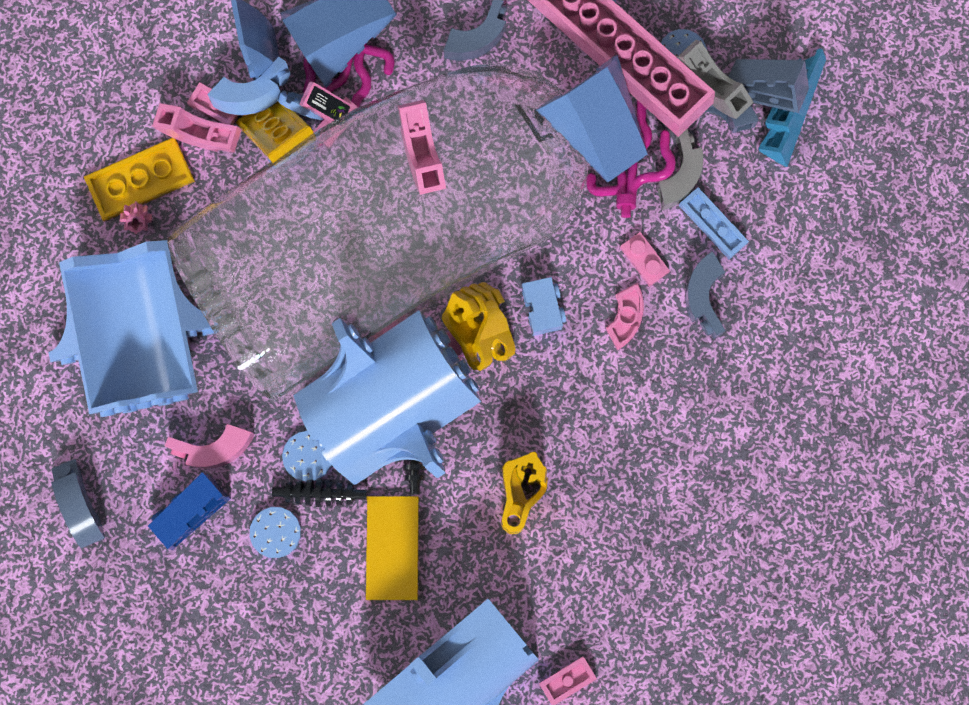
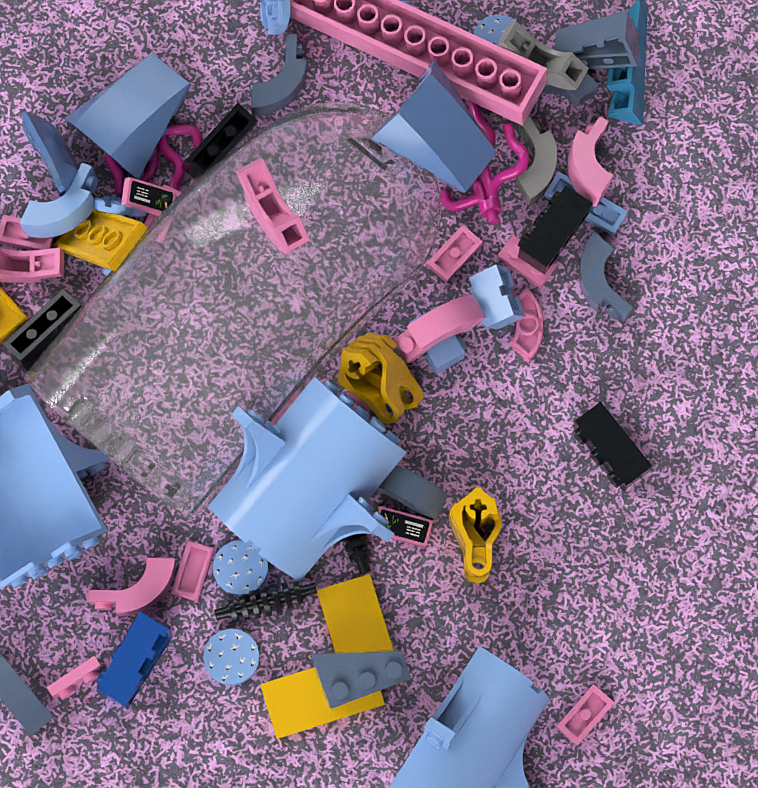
camera: 20 degrees left, 5 degrees down
(124, 513) = (65, 685): none -> bright pink plate
(197, 194) = (39, 331): none -> black brick
(265, 446) = (192, 571): none -> bright pink tile
(343, 590) = (299, 703): none -> yellow tile
(377, 584) = (358, 674): none -> sand blue wedge
(407, 72) = (220, 141): none -> black brick
(462, 463) = (407, 527): none -> black tile
(479, 436) = (414, 492): none -> sand blue arch
(545, 295) = (437, 325): none -> bright pink arch
(582, 233) = (454, 253): none -> bright pink plate
(605, 284) = (494, 295): none -> light blue brick
(666, 448) = (611, 447): none -> black brick
(677, 238) = (554, 229): none -> black brick
(720, 191) = (583, 168): none -> bright pink arch

